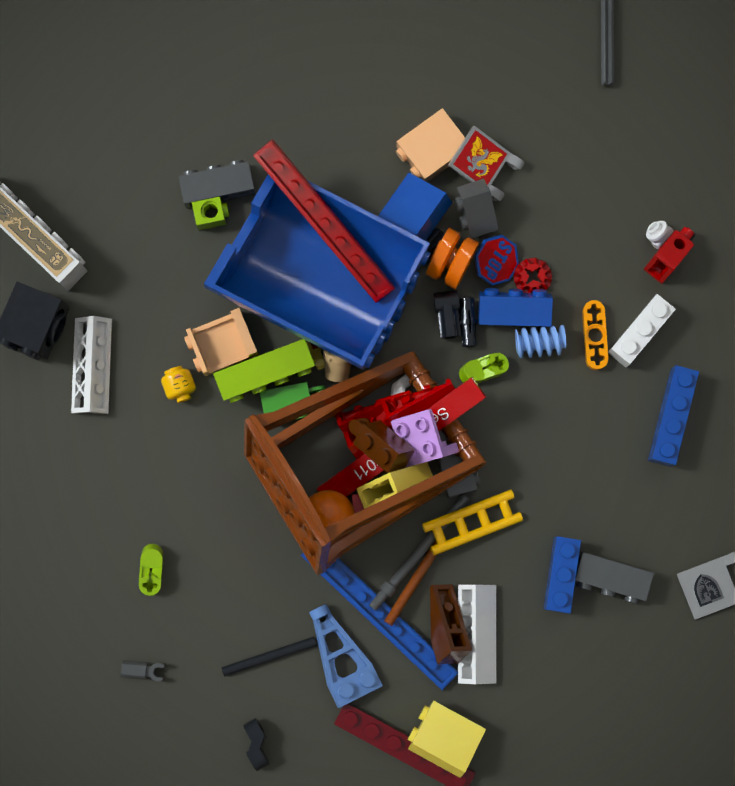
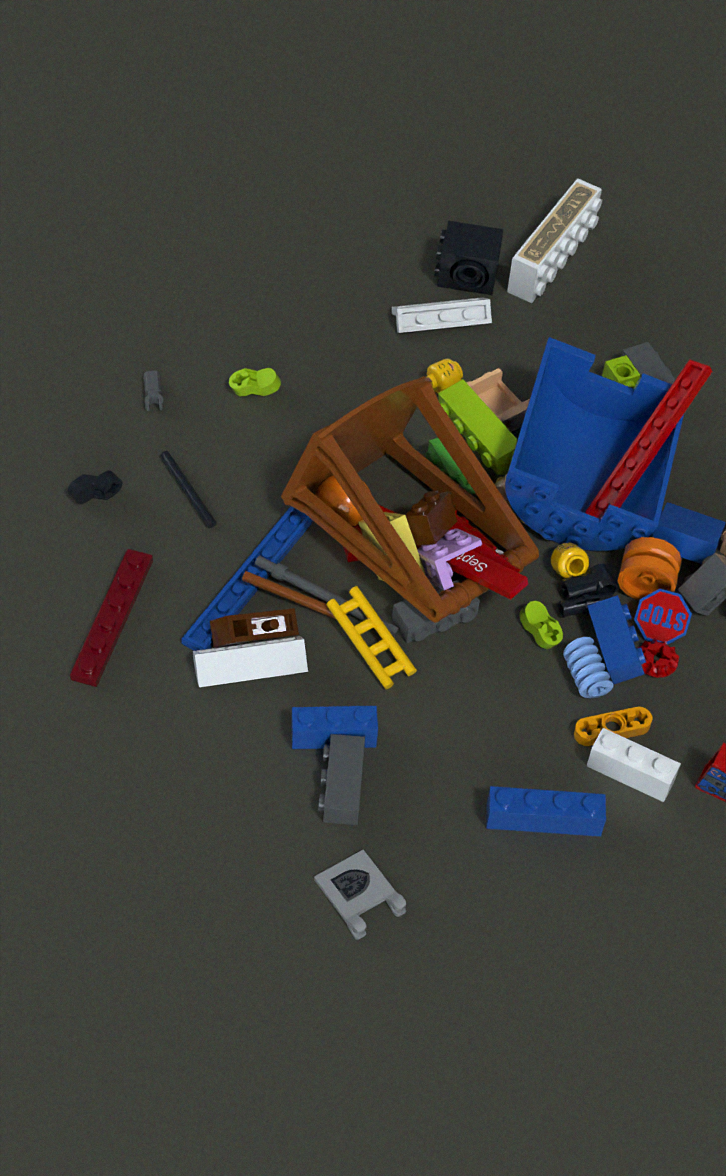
camera: 70 degrees right, 30 degrees down
(354, 685) = (173, 561): medium blue plate -> none
(423, 325) = (569, 560): none -> yellow head
(445, 738) = (129, 642): light yellow brick -> none

